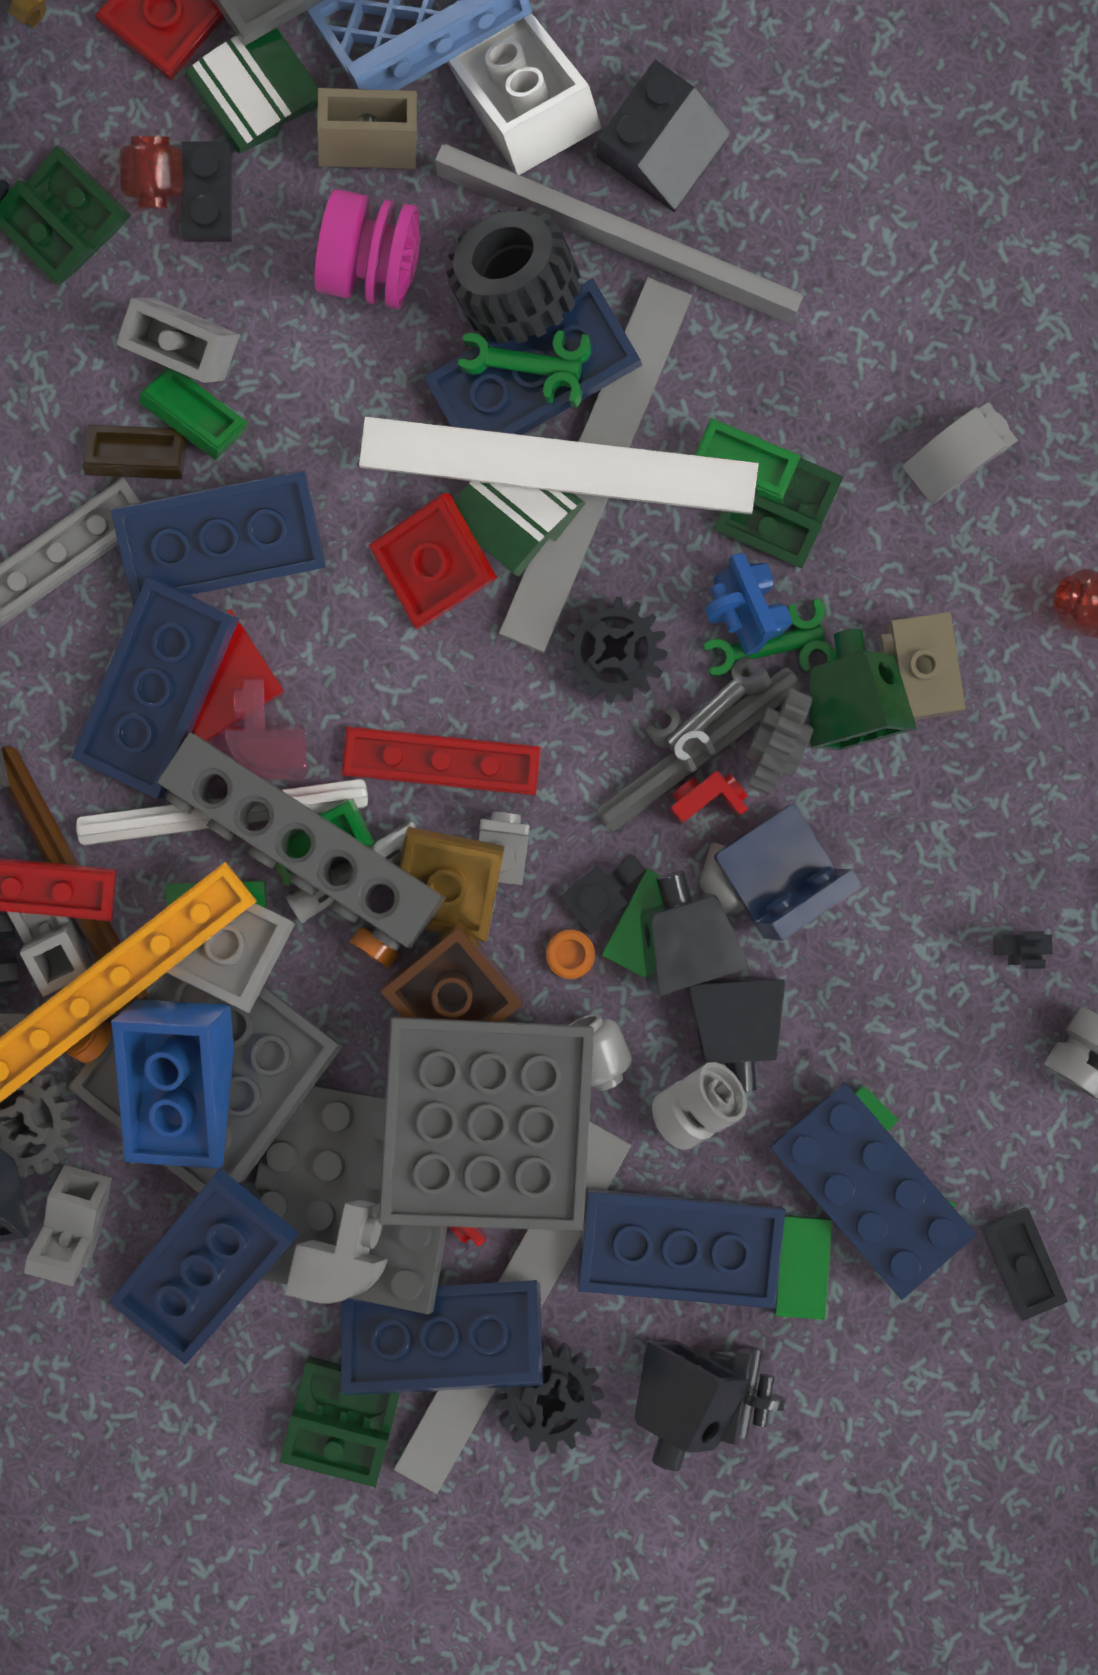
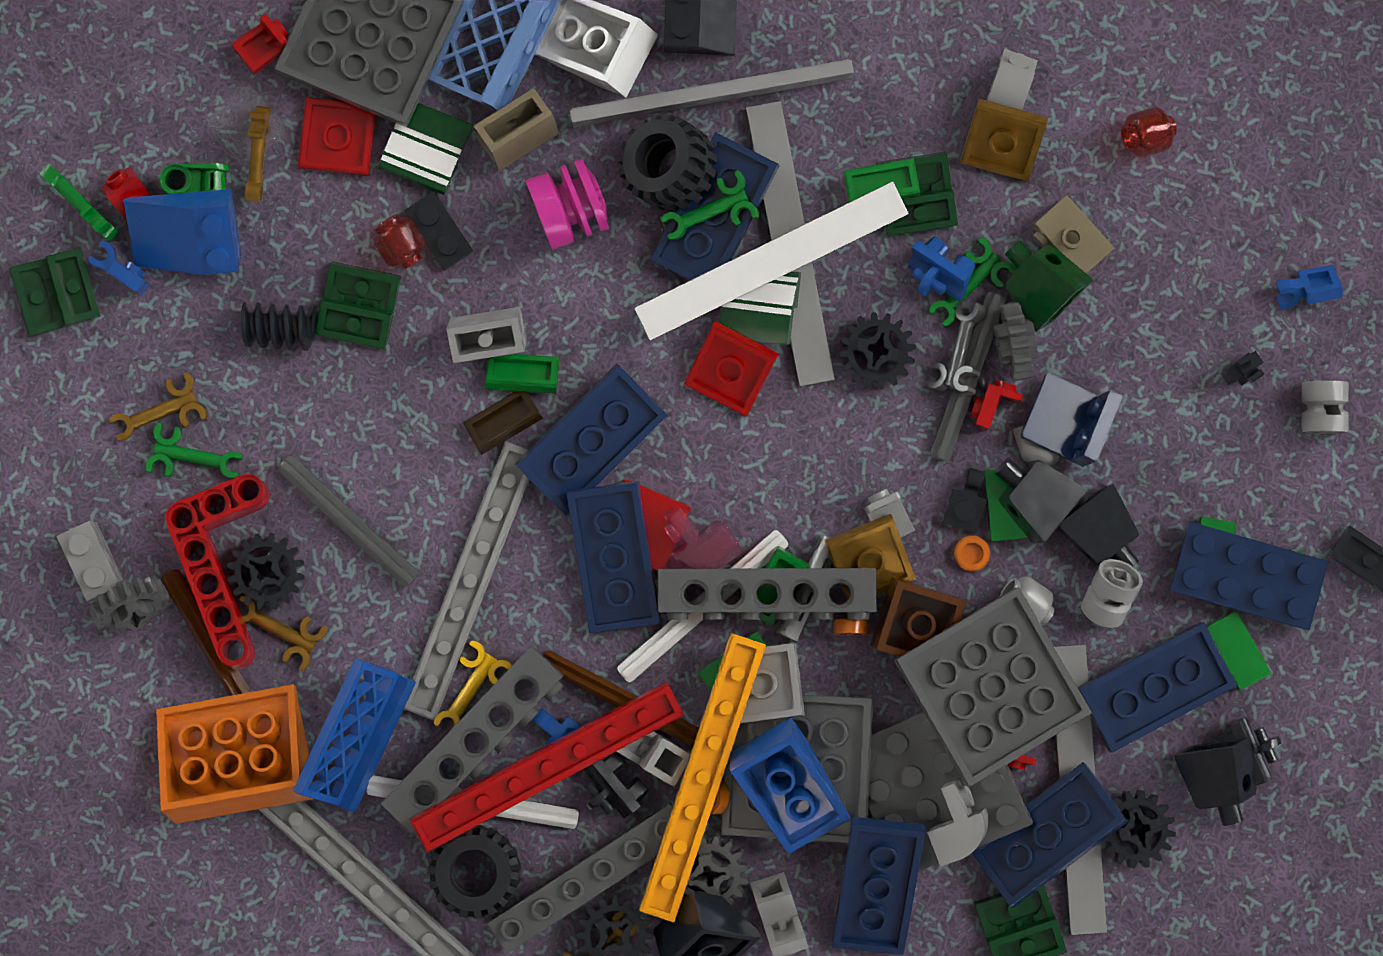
camera: 30 degrees left, 0 degrees up
(441, 761) = (815, 487): red tile -> none
(919, 502) = (1003, 140): none -> pearl gold tile

